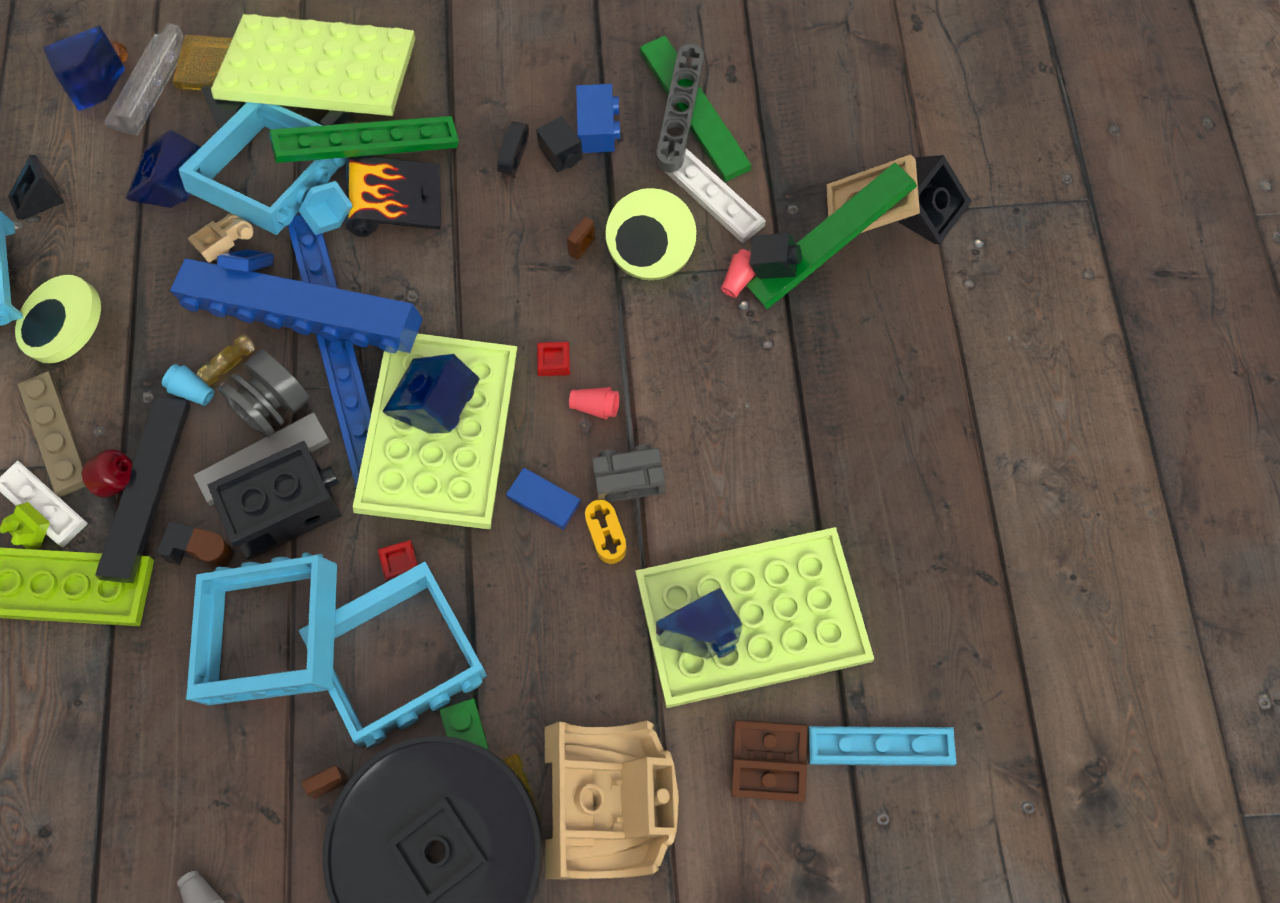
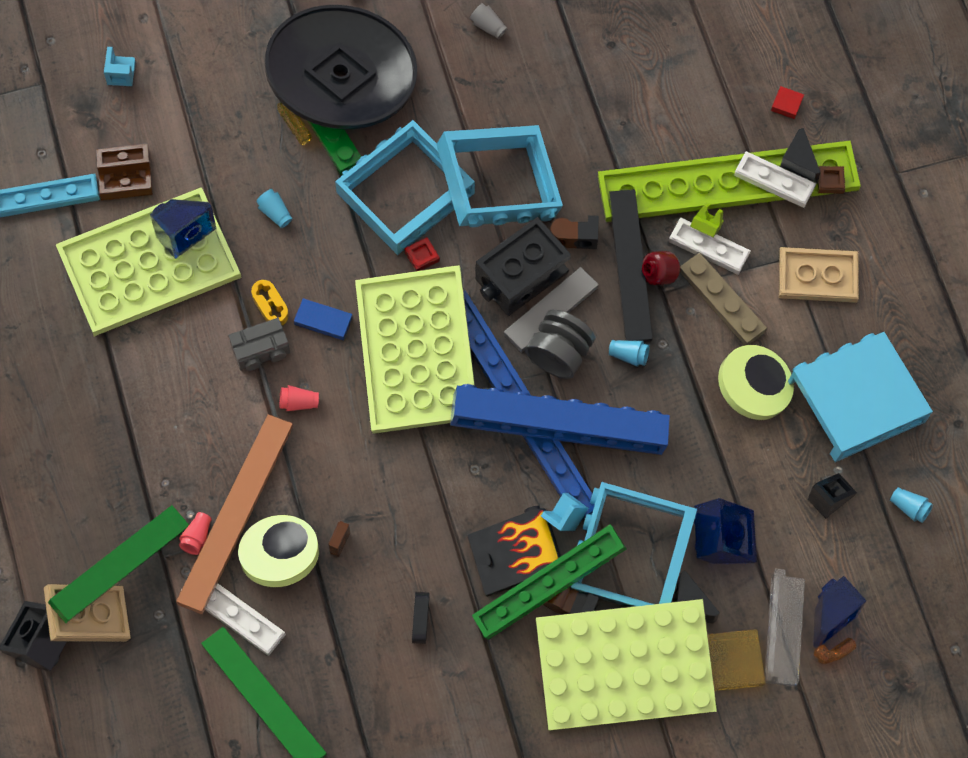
camera: 165 degrees right, 0 degrees up
(219, 236) = (653, 468): tan plate -> none
(226, 359) = (608, 380): clear yellow axle -> none
(245, 260) = (617, 455): blue tile -> none
(324, 781) = (428, 100): reddish brown tile -> none
(432, 393) = (424, 360): clear blue slope -> none
(553, 358) = (341, 433): red tile -> none
(559, 144) = (378, 627): black brick -> none
(574, 660) = (274, 208): none -> medium azure cone
(596, 118) = (351, 662): blue brick -> none
(609, 801) = (230, 122): tan piece -> none
(680, 119) = (279, 697): dark grey beam -> none
(689, 289) = (234, 514): none -> nougat tile
(775, 256) = (165, 535): black brick -> none

